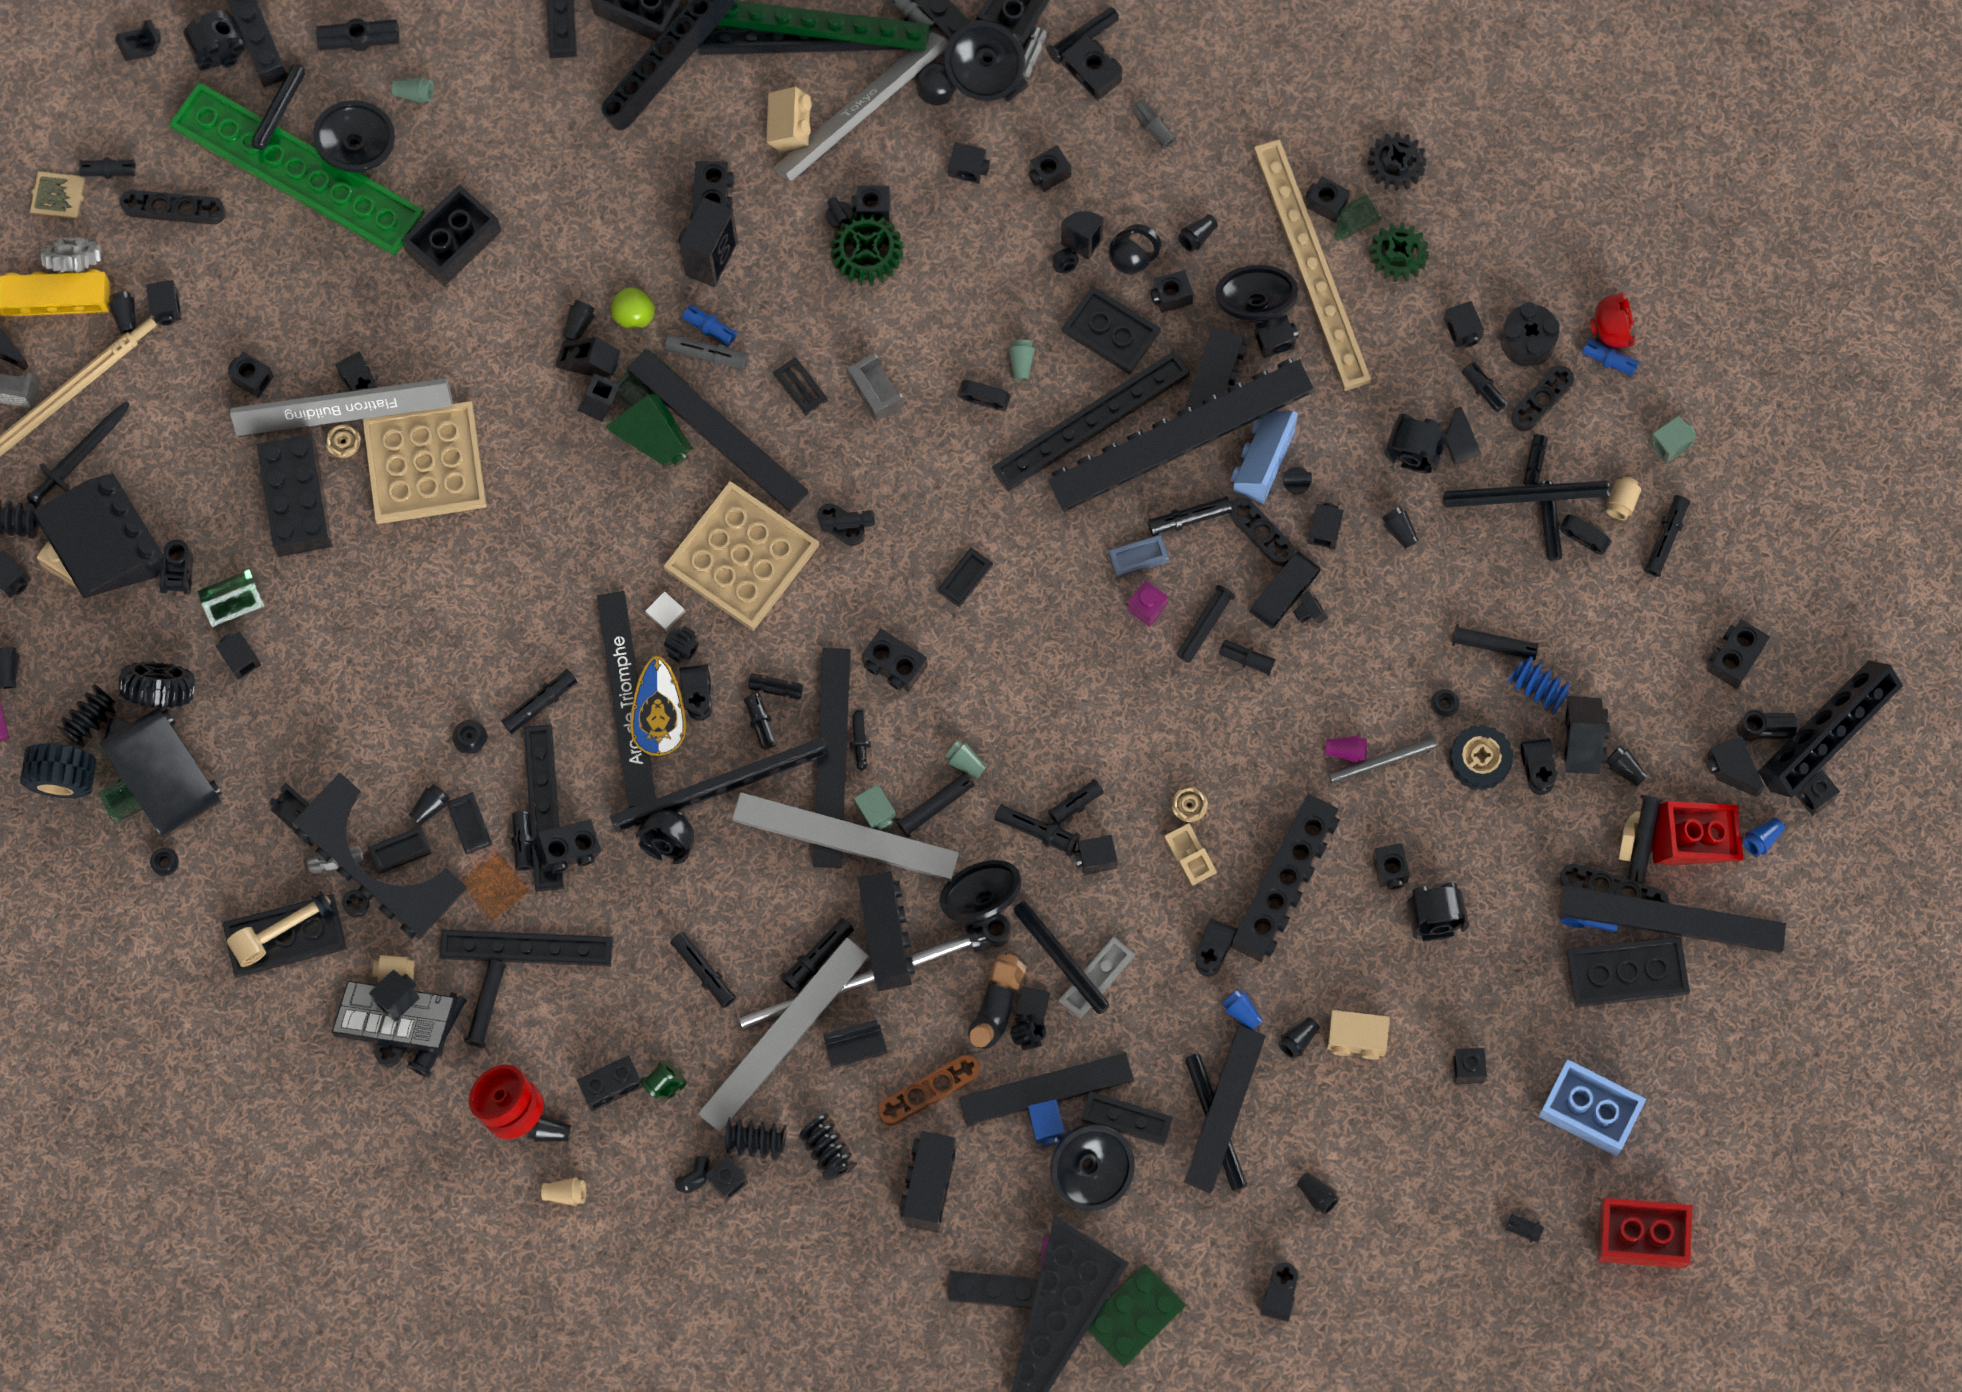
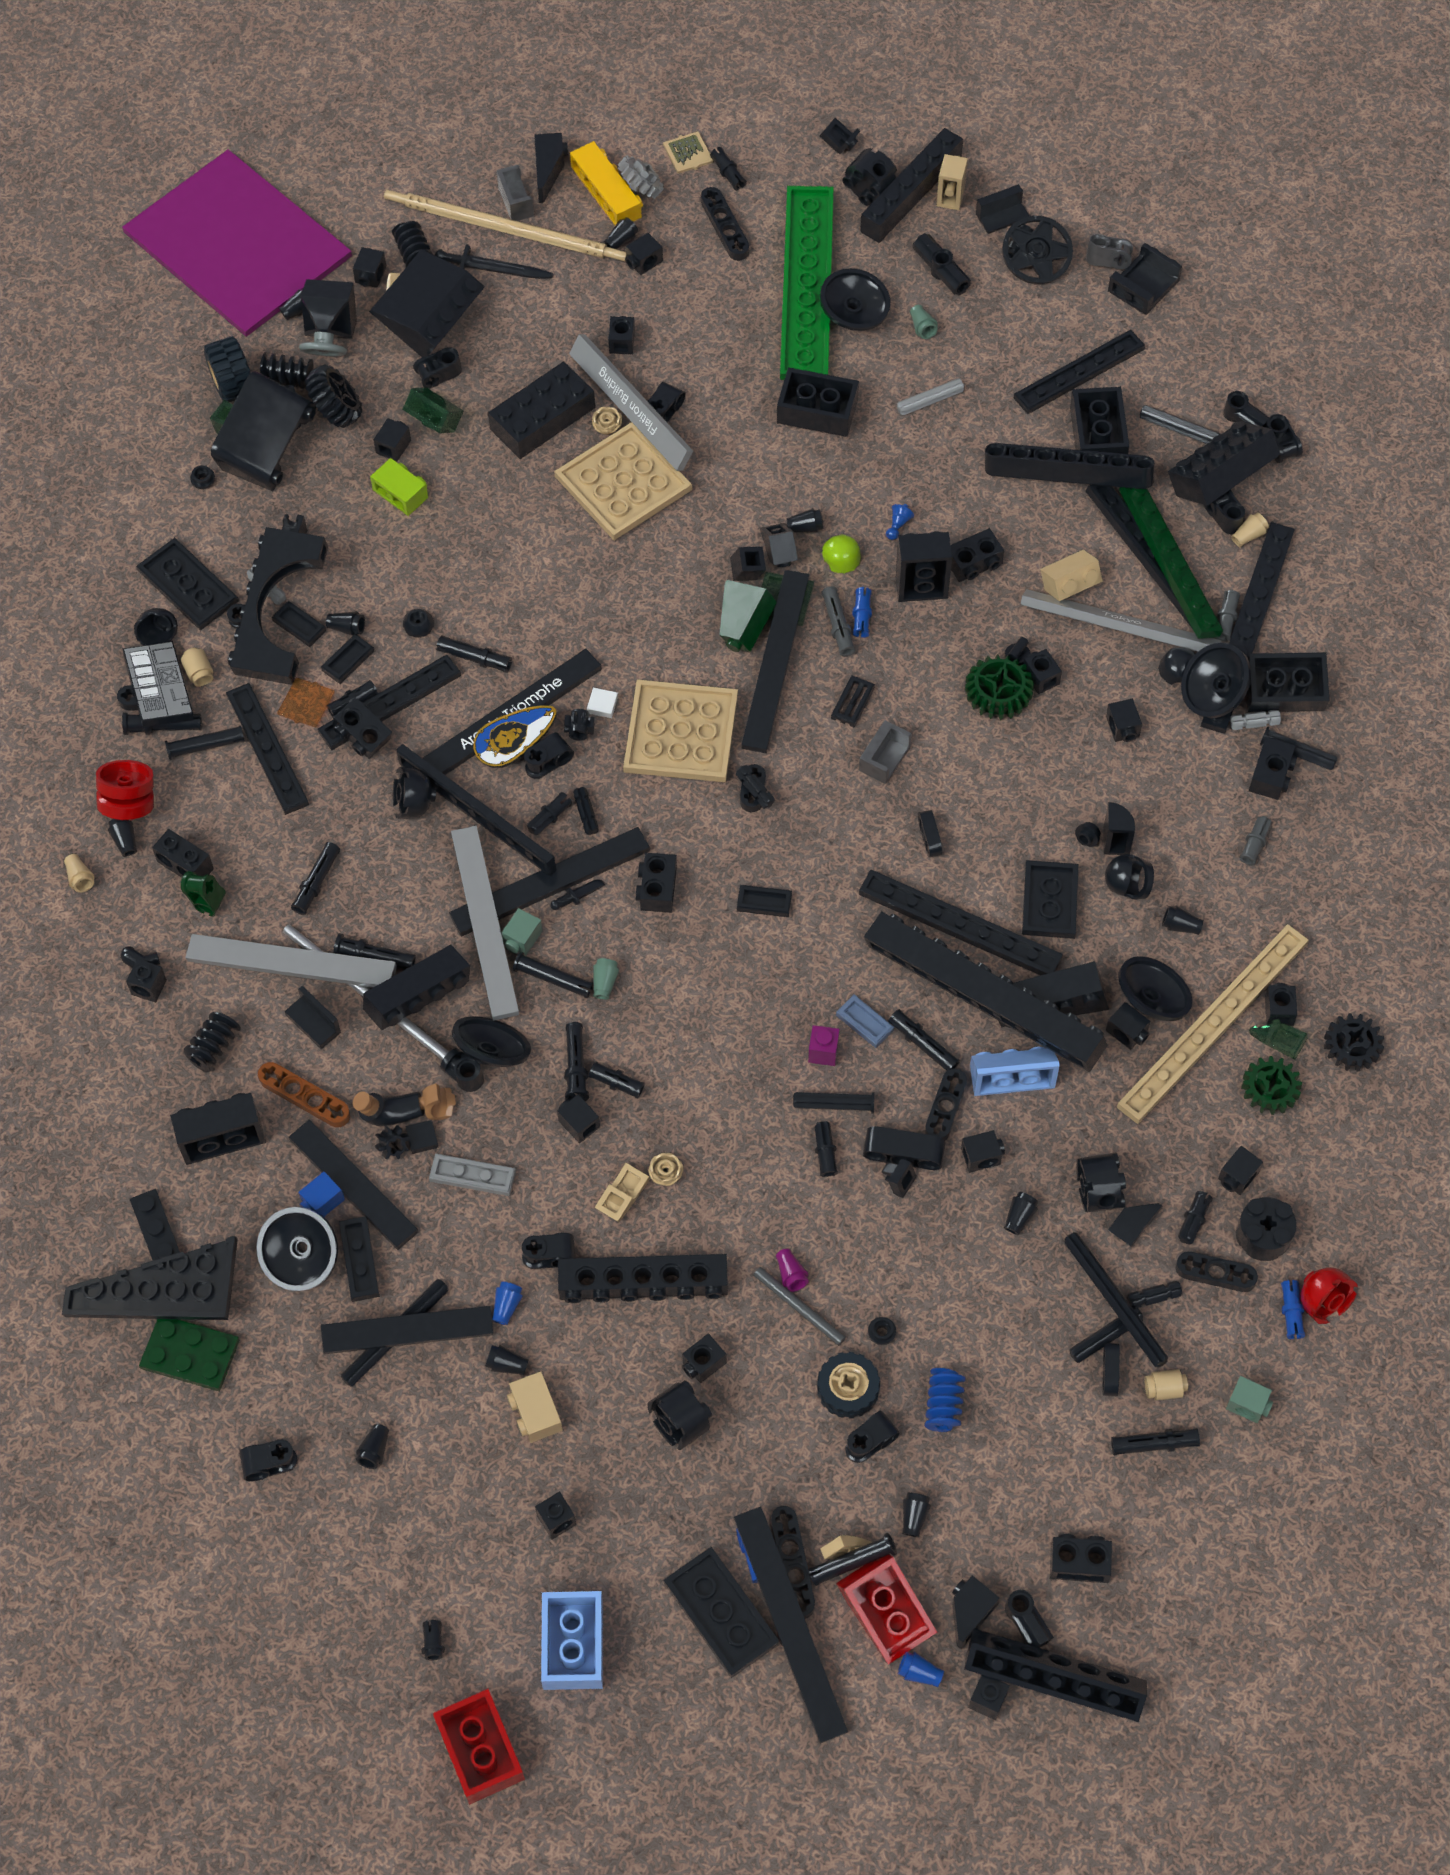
camera: 60 degrees right, 10 degrees down
(52, 641) = (327, 314): none -> black piece
(248, 945) = (162, 557): tan piece -> none
(278, 107) = (848, 243): black axle -> none
(299, 675) = (399, 486): none -> lime brick
(325, 987) = (155, 626): none -> black hair
(395, 994) = (170, 670): black brick -> none
(503, 131) = (930, 396): none -> light grey axle
(626, 234) = (900, 515): none -> blue piece
(755, 1139) = (190, 983): black piece -> none
(1021, 358) = (980, 845): sand green cone -> none
(1051, 158) = (1160, 791): black brick -> none
(1061, 957) = (471, 1136): black axle -> none
(1177, 281) = (1115, 937): black brick -> none
(1297, 480) = (1010, 1108): black plate -> none
(1494, 643) = (962, 1343): black pin -> none
(1585, 732) = (919, 1457): black brick -> none

